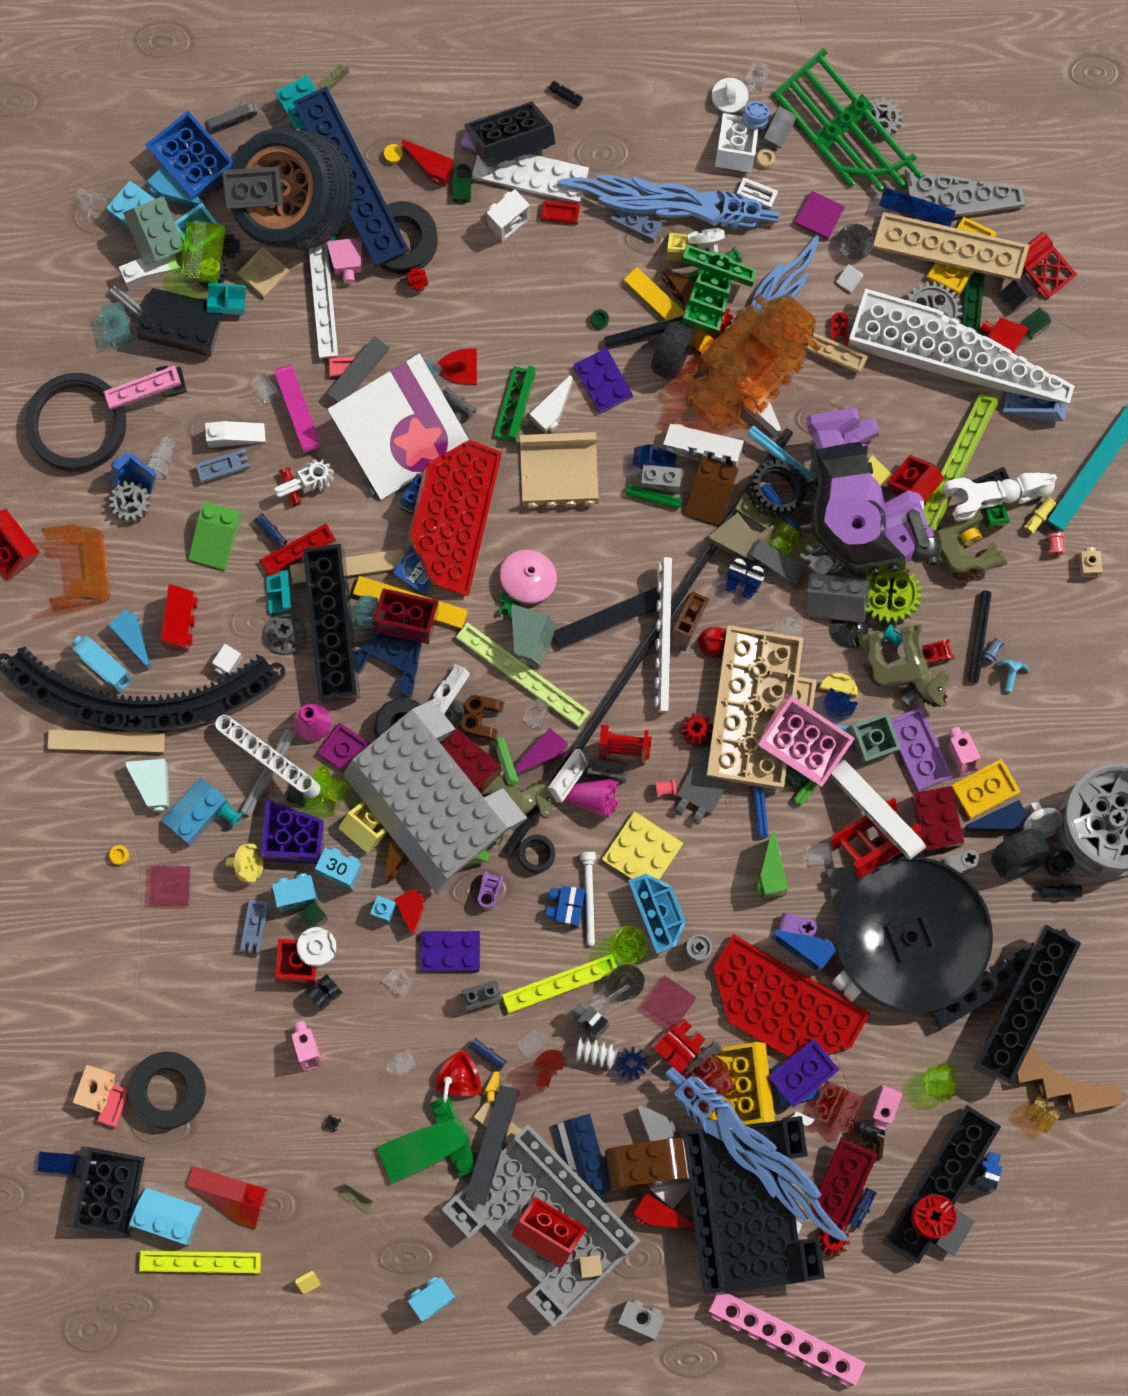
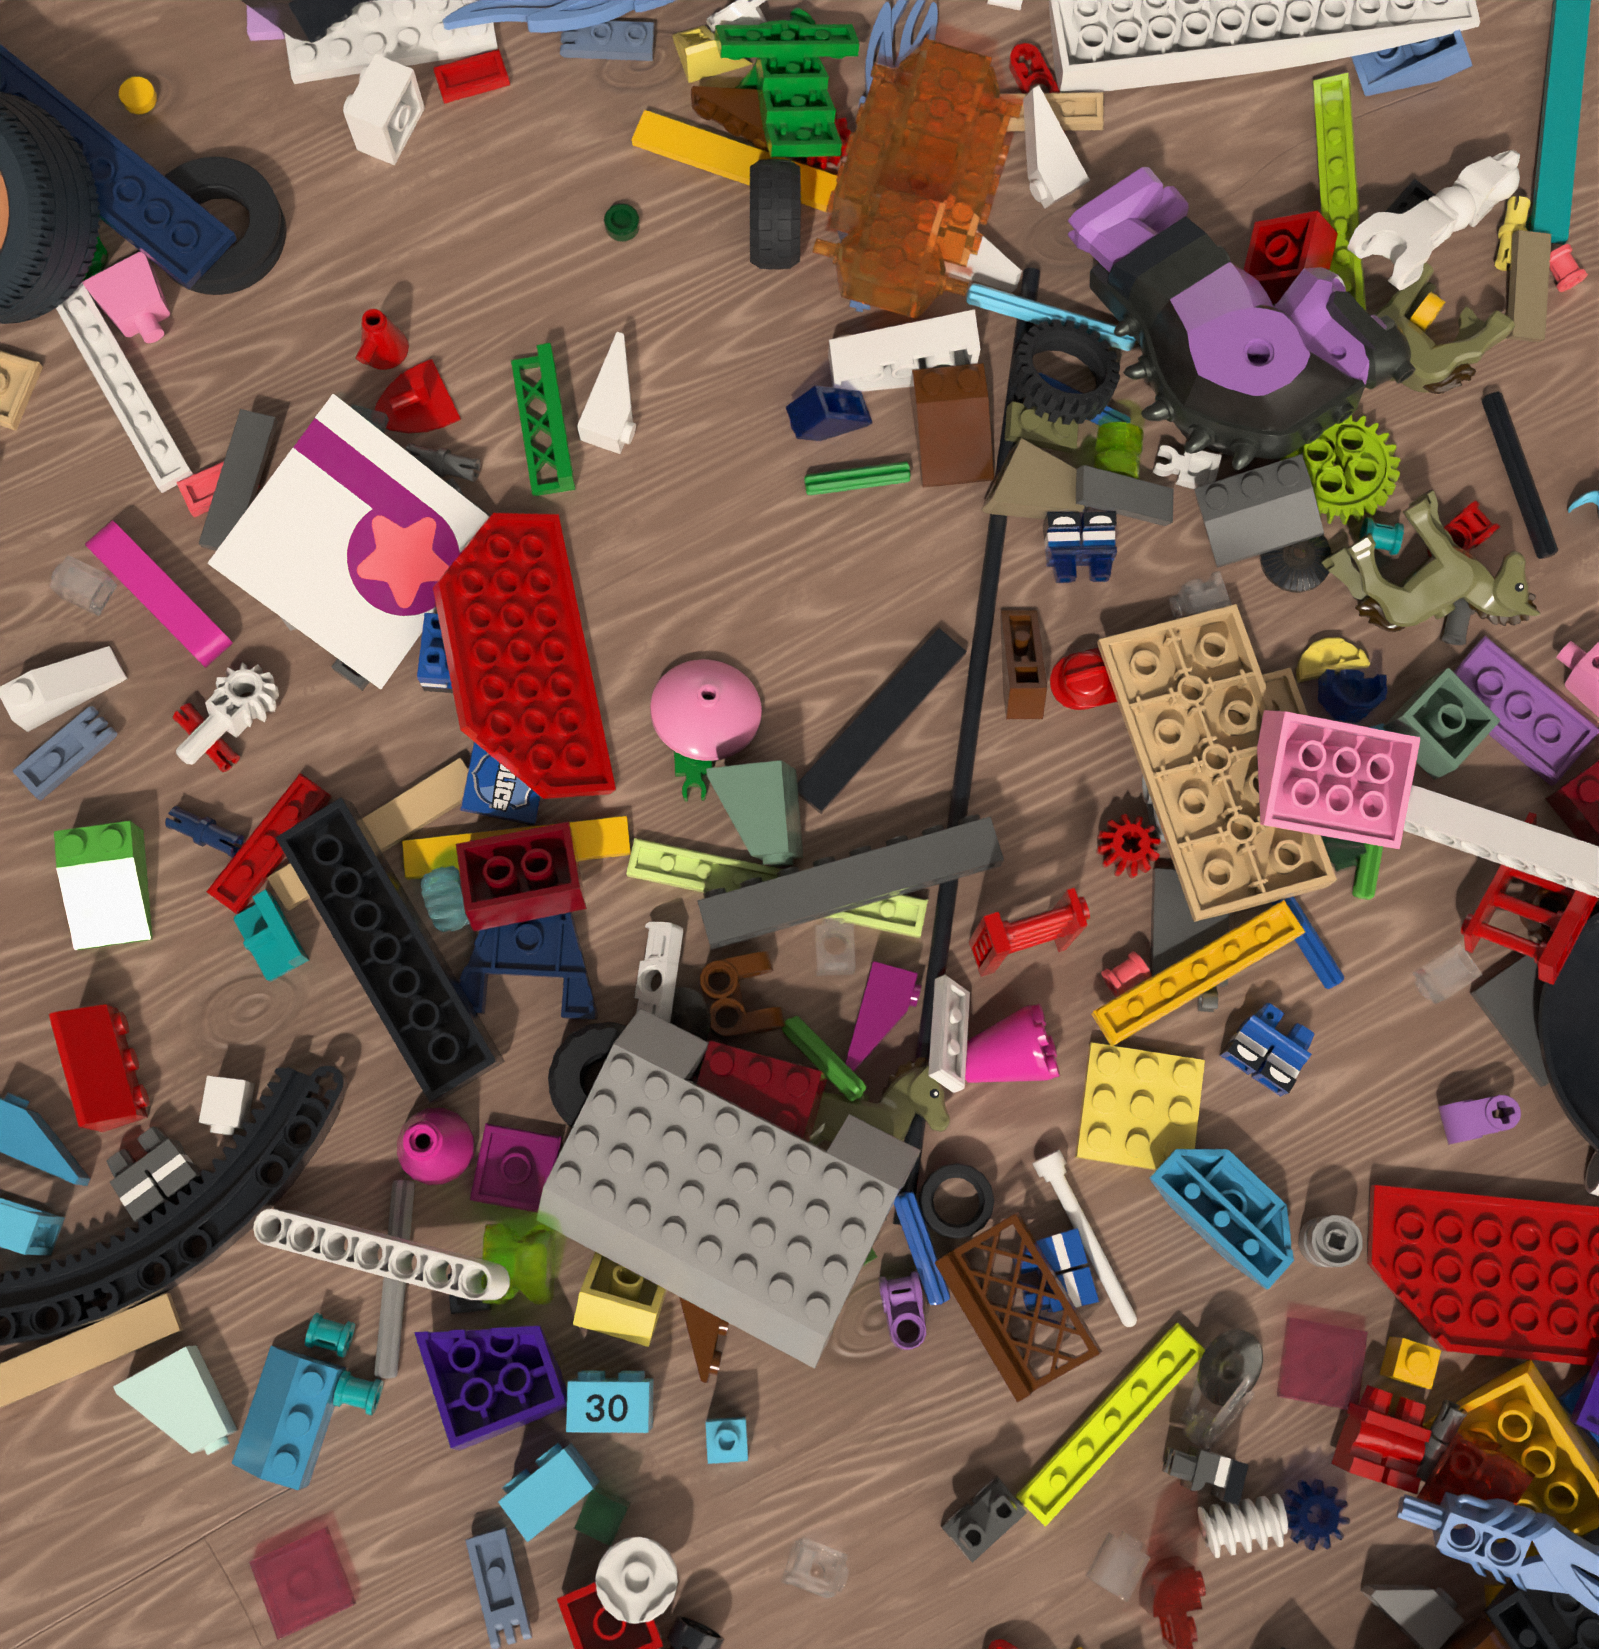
camera: 30 degrees left, 0 degrees up
(119, 855) = (179, 1568): yellow tile -> none
(189, 674) = (155, 1177): none -> dark grey hips
(228, 784) = (330, 1334): none -> teal bush
(247, 863) = (431, 1474): light yellow tile -> none
(284, 632) = (311, 1004): dark grey wheel -> none
(411, 908) = (777, 1413): red slope -> none
(417, 279) = (274, 283): red gear -> none
(434, 165) = (212, 82): red slope -> none
(450, 950) = (884, 1457): dark purple plate -> none
(457, 333) = (381, 342): none -> red piece
(462, 187) = (283, 100): dark green piece -> none
(487, 1054) = (1046, 1624): dark blue pin -> none
(510, 866) = (921, 1248): none -> blue axle
(524, 911) = (988, 1322): none -> reddish brown fence
(556, 687) = (850, 882): none -> dark grey brick
(559, 469) = (671, 502): tan panel -> none
(603, 381) = (676, 321): dark purple plate -> none
(607, 770) = (1009, 988): dark grey hinge -> none
(627, 944) = (1203, 1296): clear neon green cone -> none
(640, 332) = (702, 213): black axle -> none
(661, 478) = (857, 440): light grey brick -> none
(663, 643) = (1000, 718): white plate -> none
(698, 801) = (1197, 973): none -> yellow tile
(708, 1018) = (1410, 1362): none -> yellow brick
(713, 844) = (1284, 1055): none -> blue hips
(772, 877) = (1388, 1038): bright green slope -> none
(807, 948) = (1538, 1153): blue slope -> none
(823, 381) = (1051, 161): none -> white slope
(993, 651) = (1555, 493): sand blue pin -> none
(996, 516) = (1451, 262): green slope -> none
(1032, 545) = (1529, 285): none -> dark tan tile

